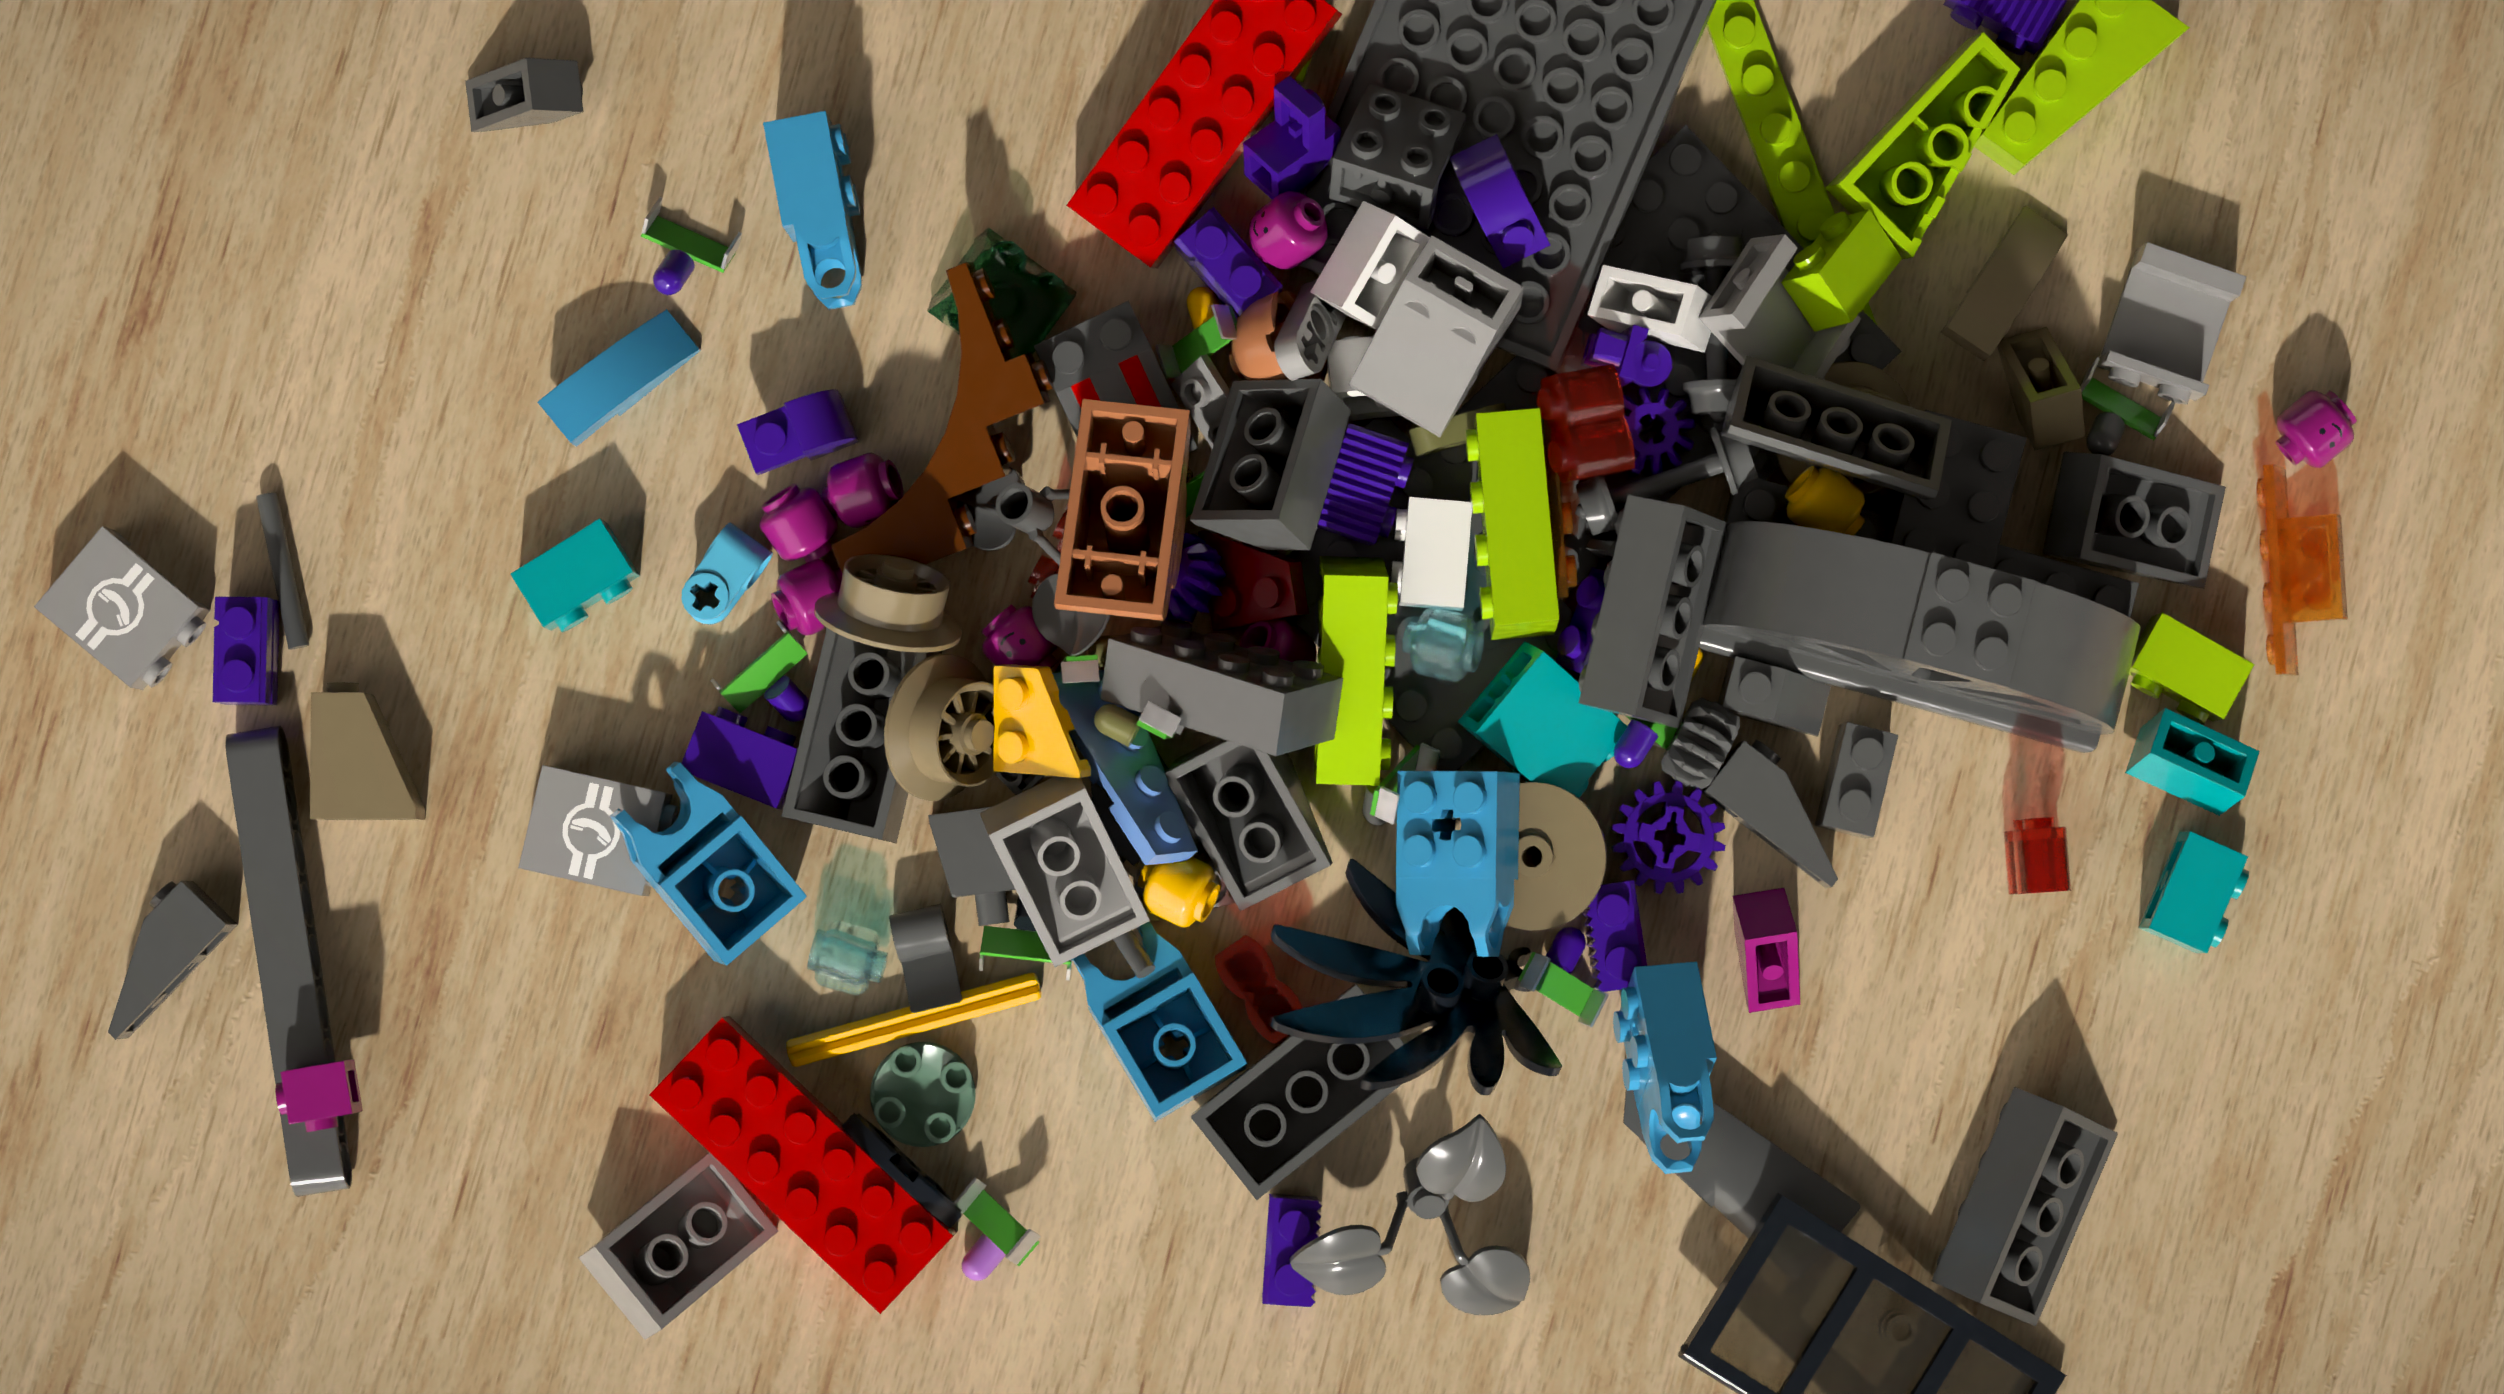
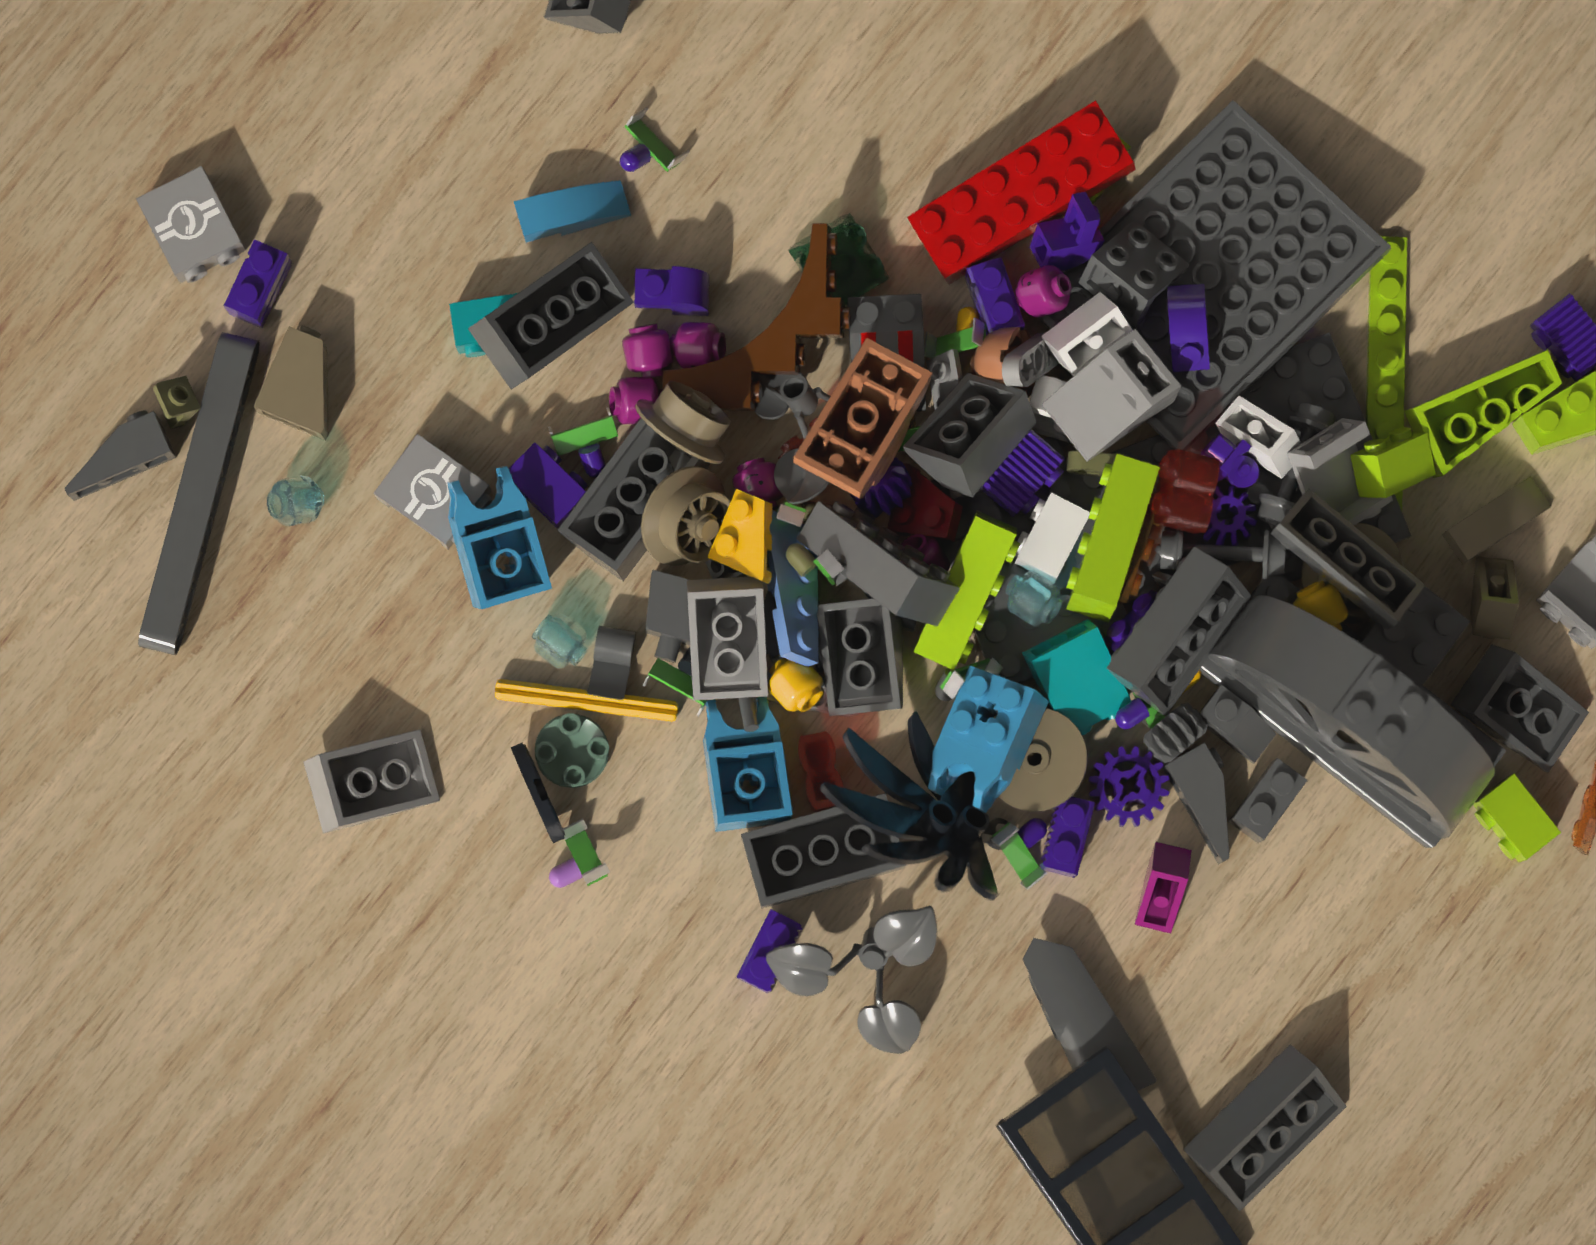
camera: 20 degrees right, 5 degrees down
(205, 853) = (177, 401): none -> olive bracket
(282, 570) = (303, 244): dark grey bar -> none
(319, 1094) = (183, 582): magenta brick -> none
(420, 919) = (295, 501): none -> clear light blue head
(652, 536) = (551, 315): none -> dark grey brick
(729, 565) = (591, 361): medium azure piece -> none
(801, 1163) = (475, 762): red brick -> none
(817, 200) = (747, 148): dark azure brick -> none
(1668, 1057) = (1070, 923): dark azure brick -> none
(2037, 857) = (1366, 899): clear red brick -> none
(2118, 411) = (1536, 634): piece -> none
(2192, 762) = (1494, 880): teal brick -> none
(2195, 893) = (1461, 968): teal brick -> none

